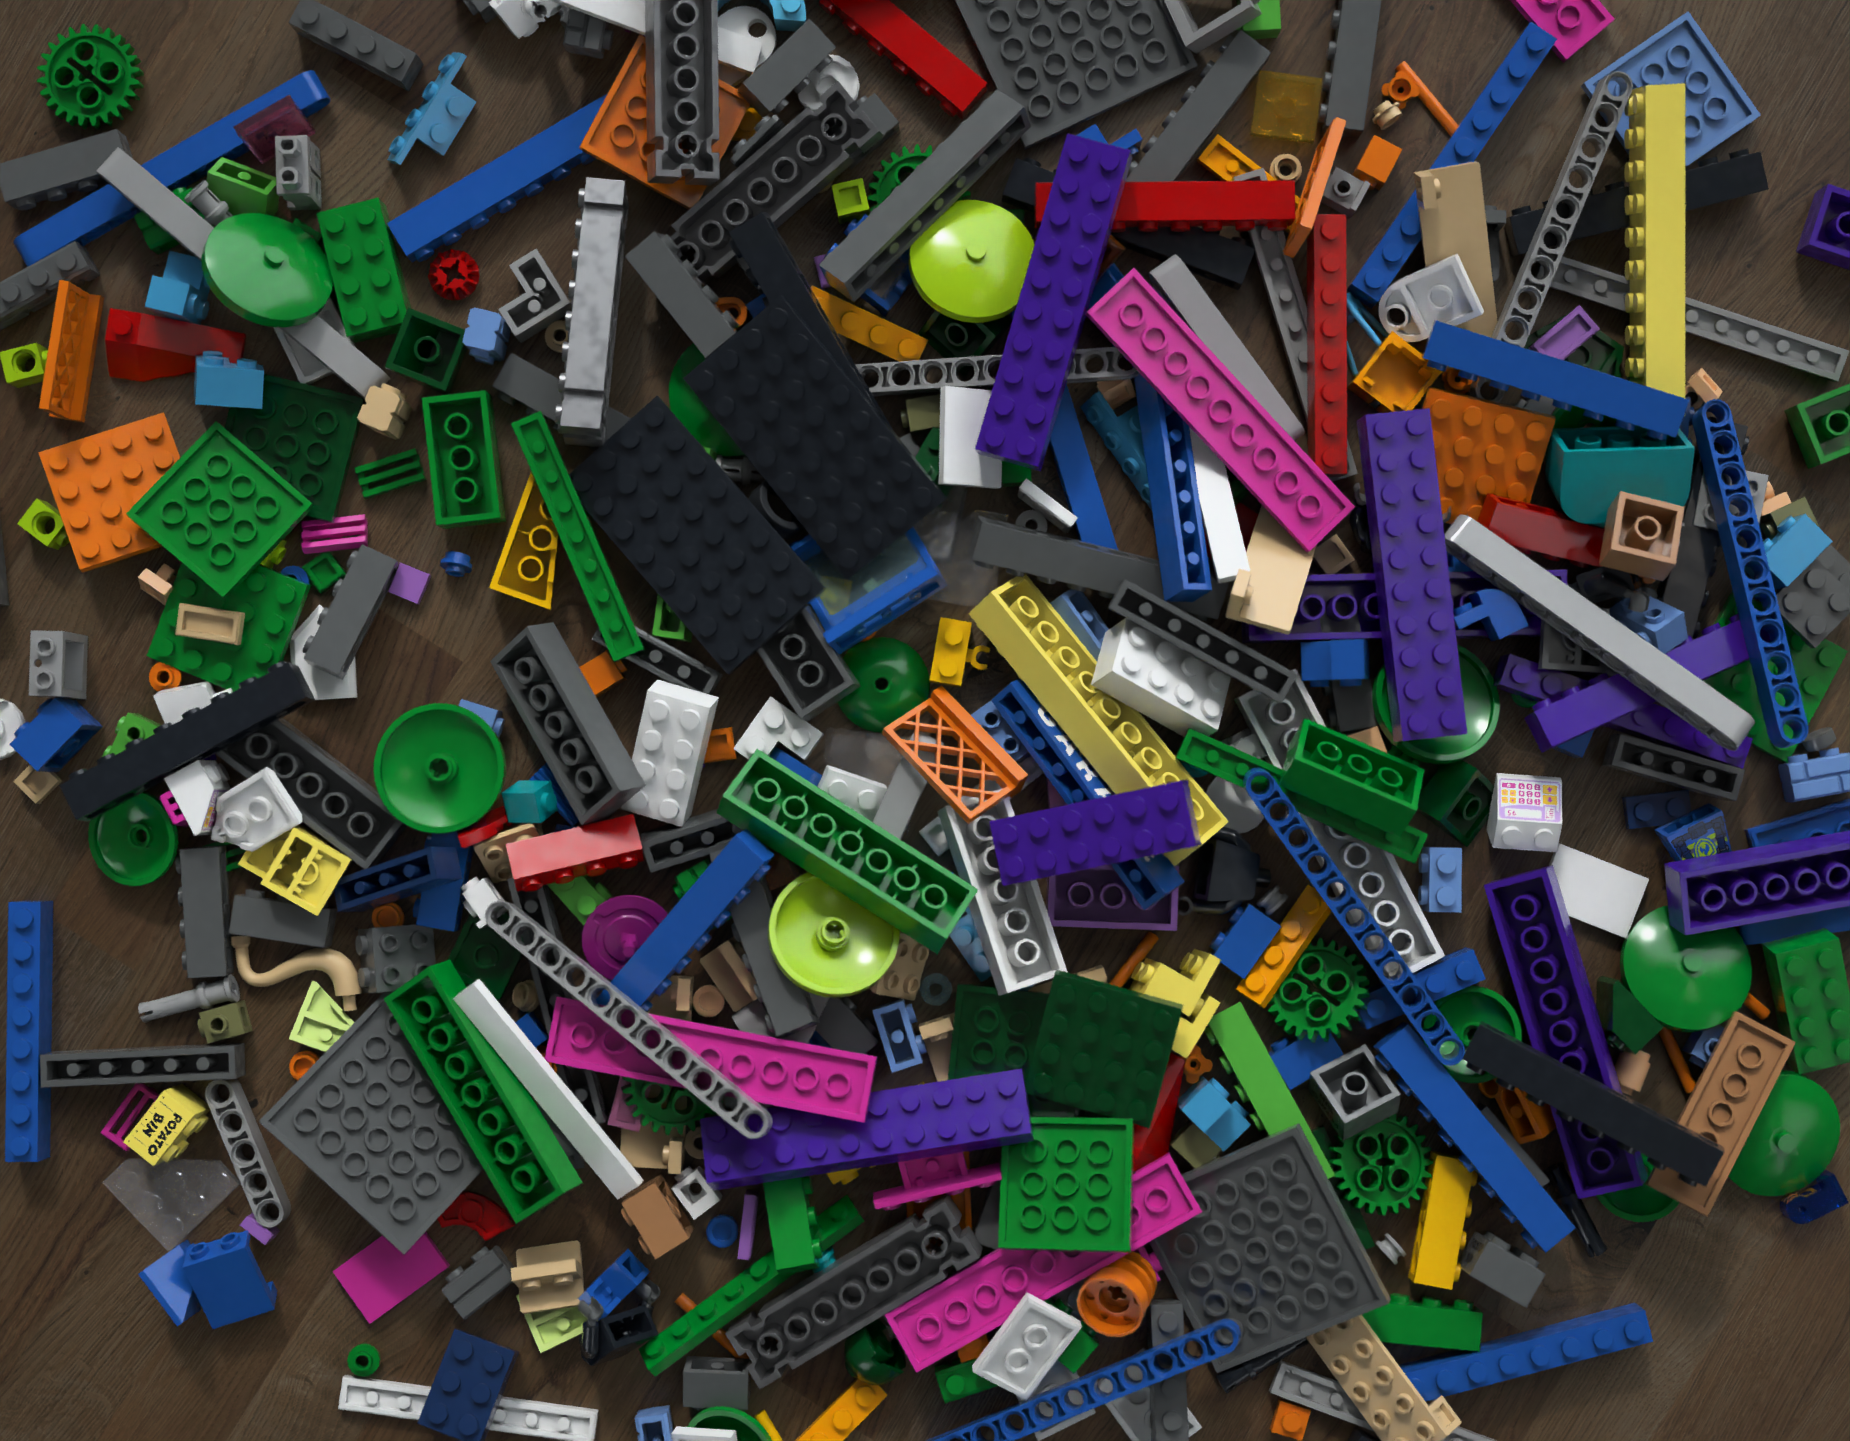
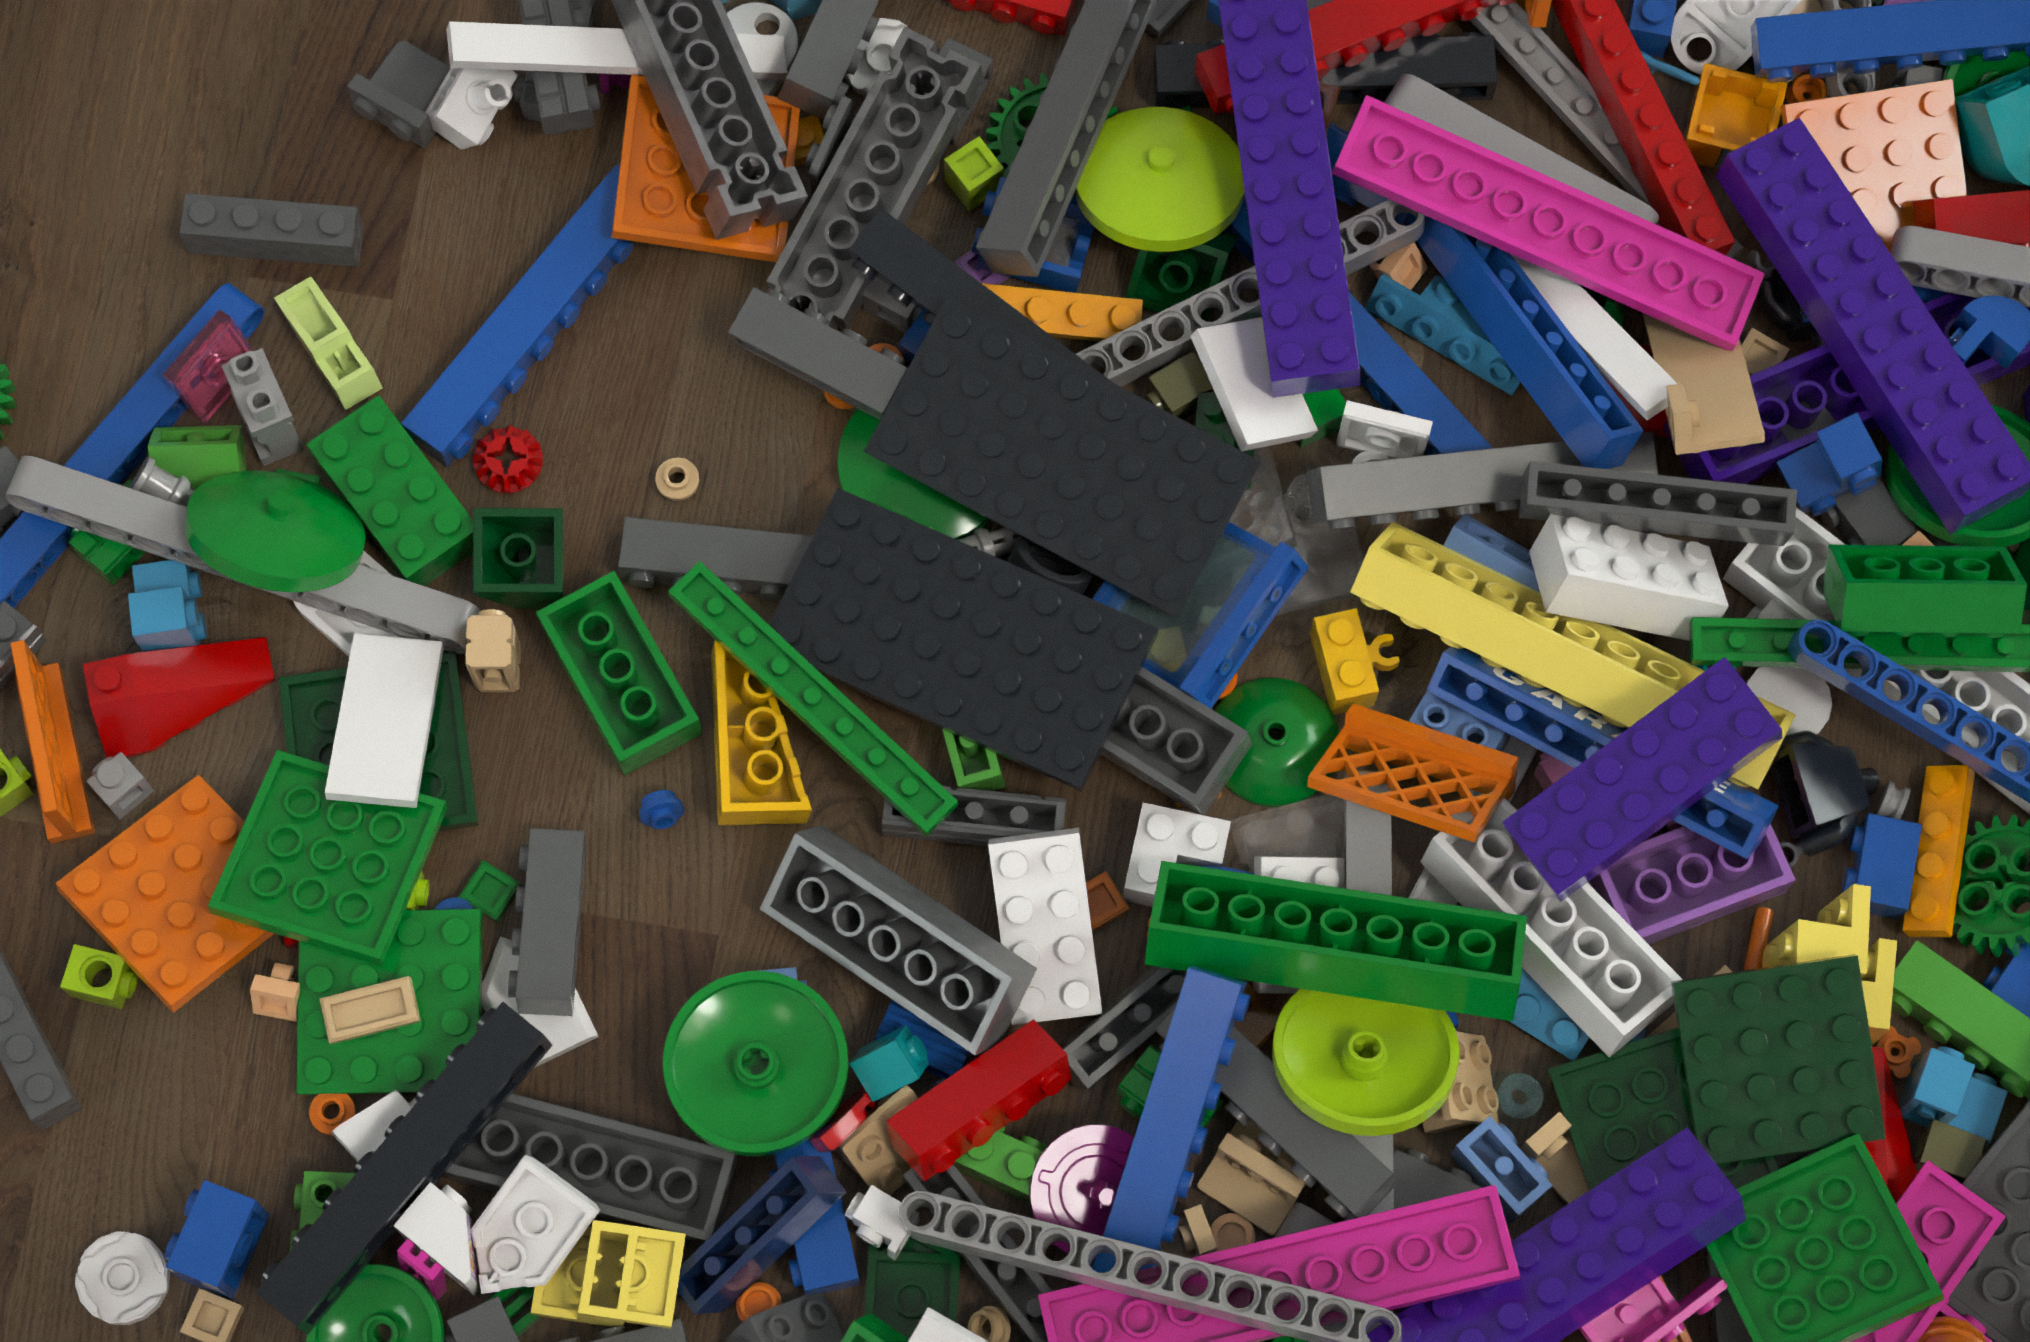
camera: 25 degrees left, 15 degrees down
(62, 667) = (191, 1145): light grey window -> none
(108, 398) = (114, 780): none -> light grey brick
(227, 383) = (262, 697): dark azure brick -> none
(294, 430) = (384, 720): none -> white tile
(334, 530) = (484, 836): dark pink tile -> none
(364, 141) = (328, 343): none -> yellowish green slope
(365, 481) = (555, 709): green tile -> none
(409, 583) = (608, 861): medium lavender tile -> none
(439, 114) = (409, 278): dark azure bracket -> none
(486, 336) = (585, 508): medium blue brick -> none
(540, 304) = (636, 438): light grey brick -> none
(594, 312) = (714, 423): flat silver brick -> none
(603, 673) = (915, 861): orange brick -> none

